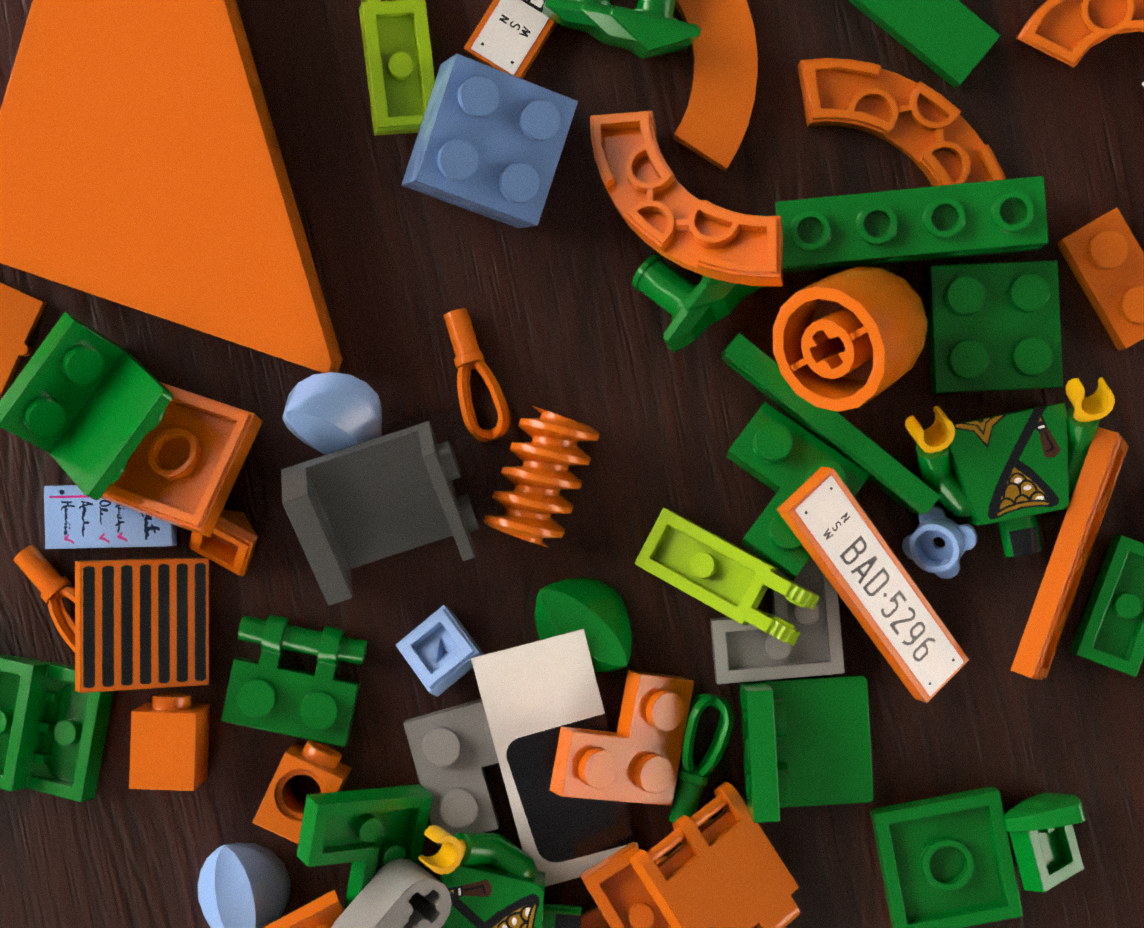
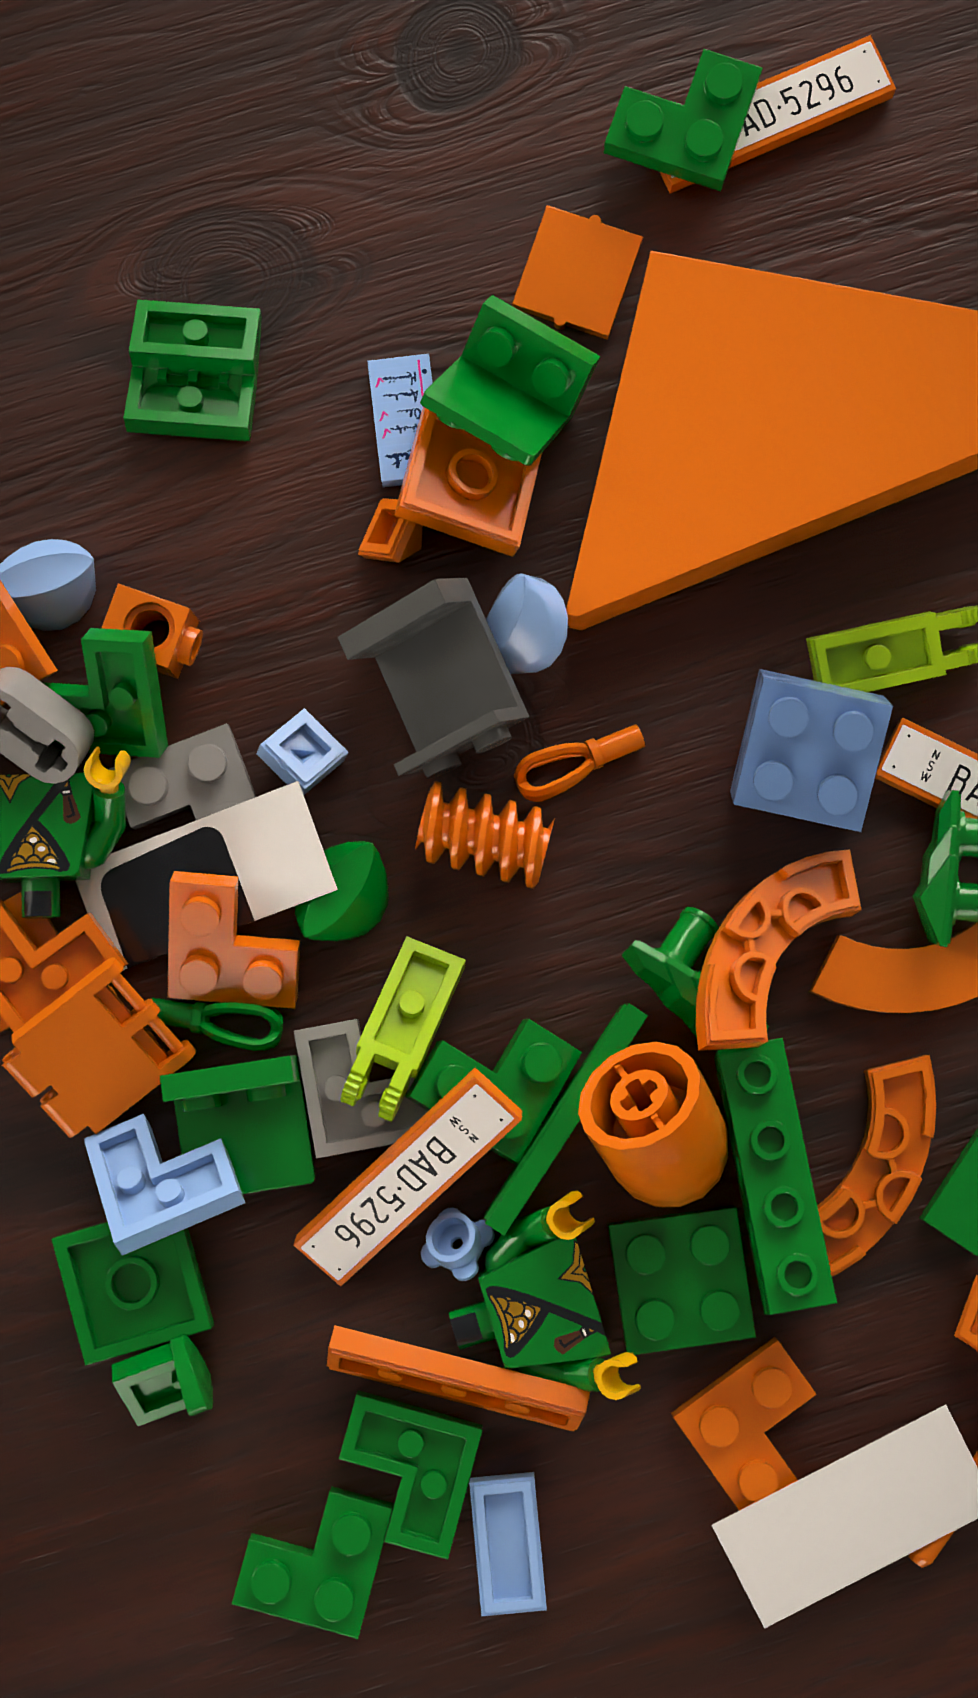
camera: 90 degrees right, 5 degrees down
(52, 589) = (329, 374): orange piece -> none
(141, 624) = (303, 459): tile -> none
(169, 743) = (188, 498): orange brick -> none
(291, 699) = (241, 610): green plate -> none
(871, 835) = (154, 1197): none -> light blue plate

